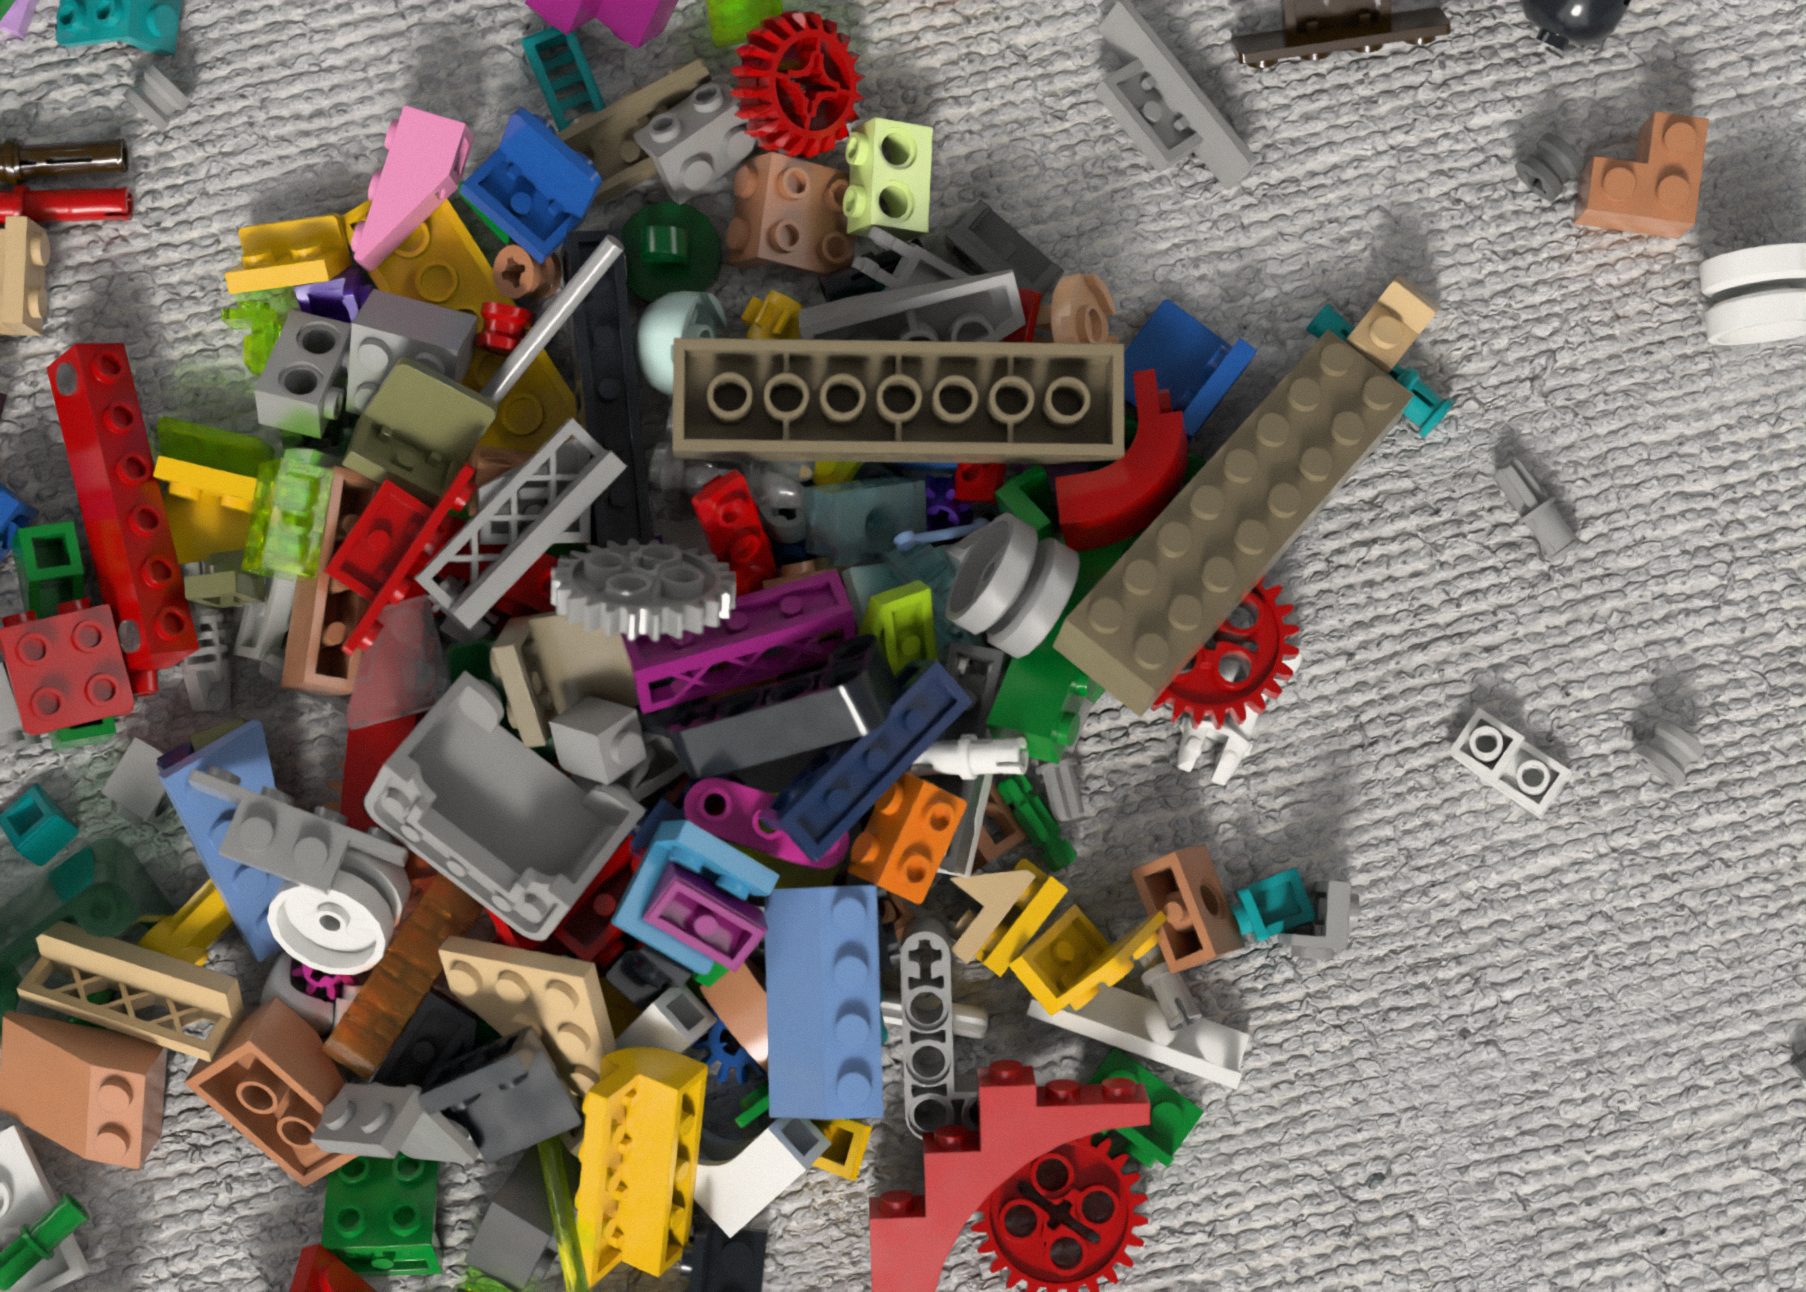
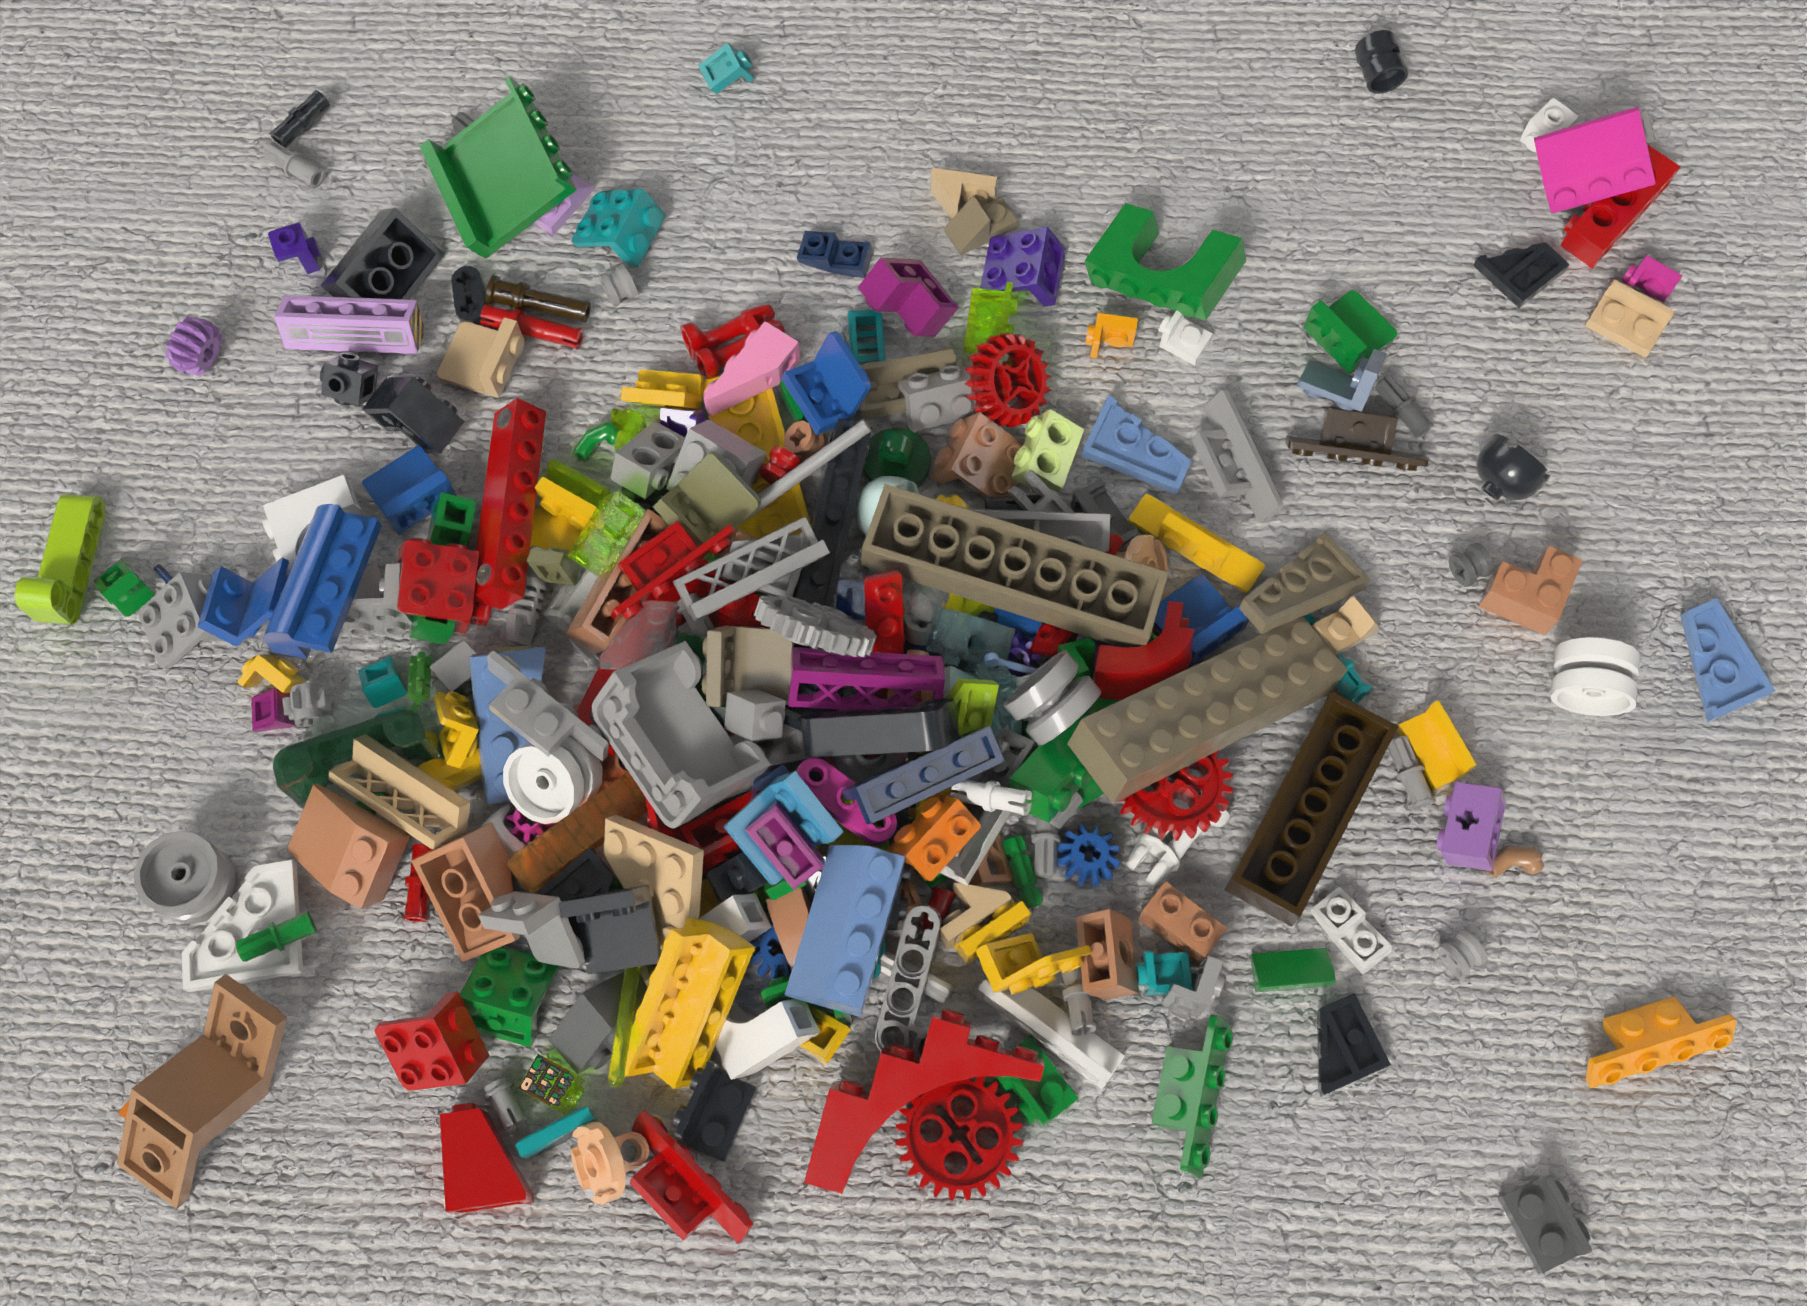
camera: 10 degrees right, 15 degrees down
(92, 810) = (419, 678): none -> bright green axle
(174, 871) = (459, 728): none -> yellow bracket
(209, 353) = (593, 436): none -> green arm
(210, 1126) = (417, 898): none -> red pin
(315, 153) = (701, 343): none -> red piece
(675, 510) = (851, 597): none -> clear blue bracket
(938, 905) = (942, 901): none -> red pin
(1012, 132) = (1130, 448): none -> medium blue wing
(1134, 759) = (1074, 856): none -> blue gear
(1148, 253) = (1196, 543): none -> yellow bracket
(1278, 830) = (1181, 923): none -> nougat brick
(1321, 277) = (1308, 583): none -> dark tan wing
(1351, 1057) = (1190, 1093): none -> green bracket
(1414, 609) = (1311, 809): none -> dark brown brick
(1443, 843) = (1292, 970): none -> green slope
(1542, 928) = (1346, 1045): none -> black wing
(1564, 462) = (1437, 747): none -> yellow panel
(1659, 591) = (1479, 844): none -> medium lavender brick
(1710, 586) = (1522, 856): none -> medium nougat arm

